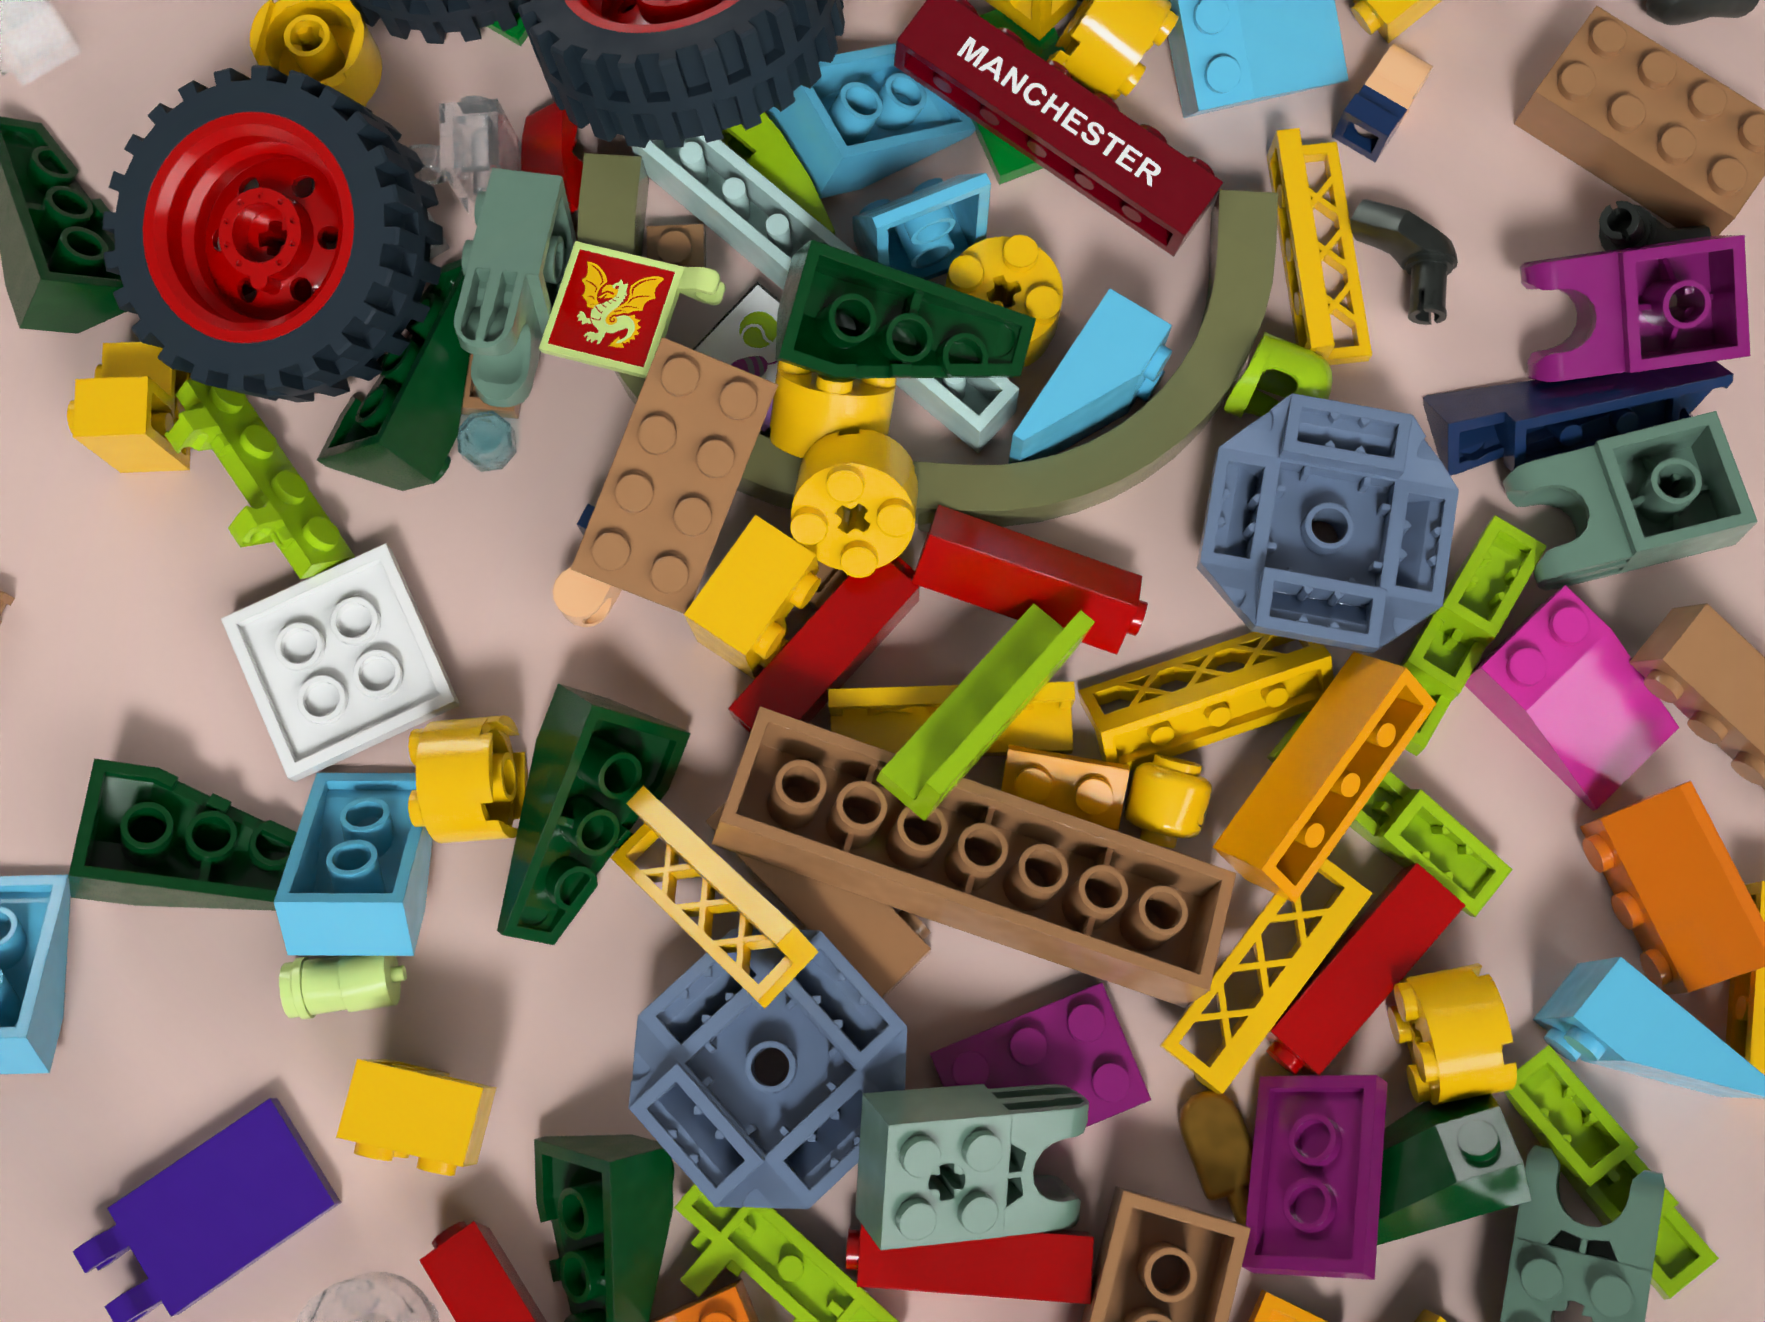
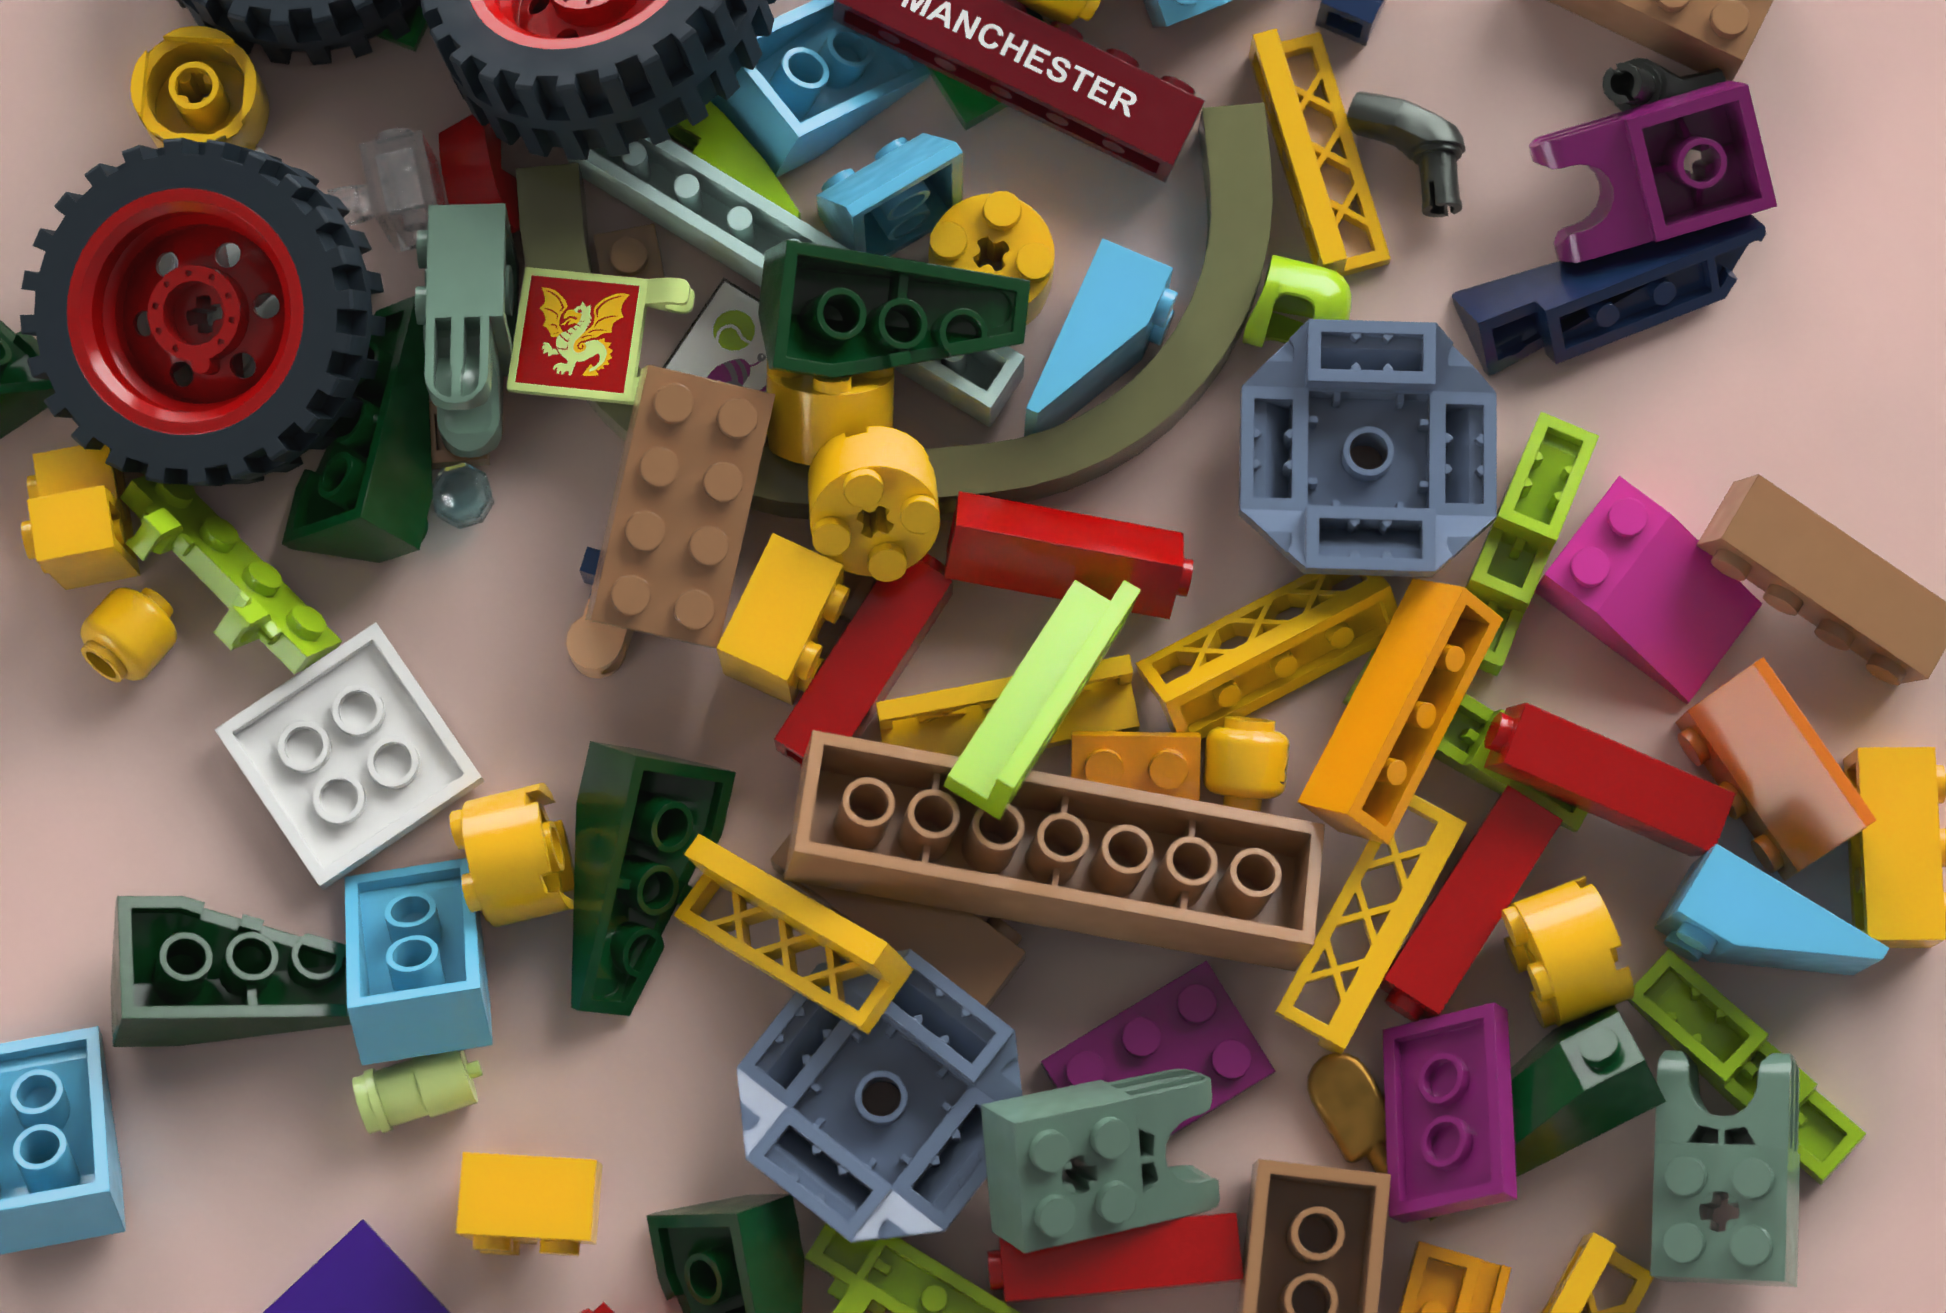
camera: 15 degrees left, 0 degrees up
(161, 519) = (128, 634): none -> yellow head
(1516, 873) = (1607, 779): none -> red brick
(1623, 502) = (1667, 386): sand green brick -> none

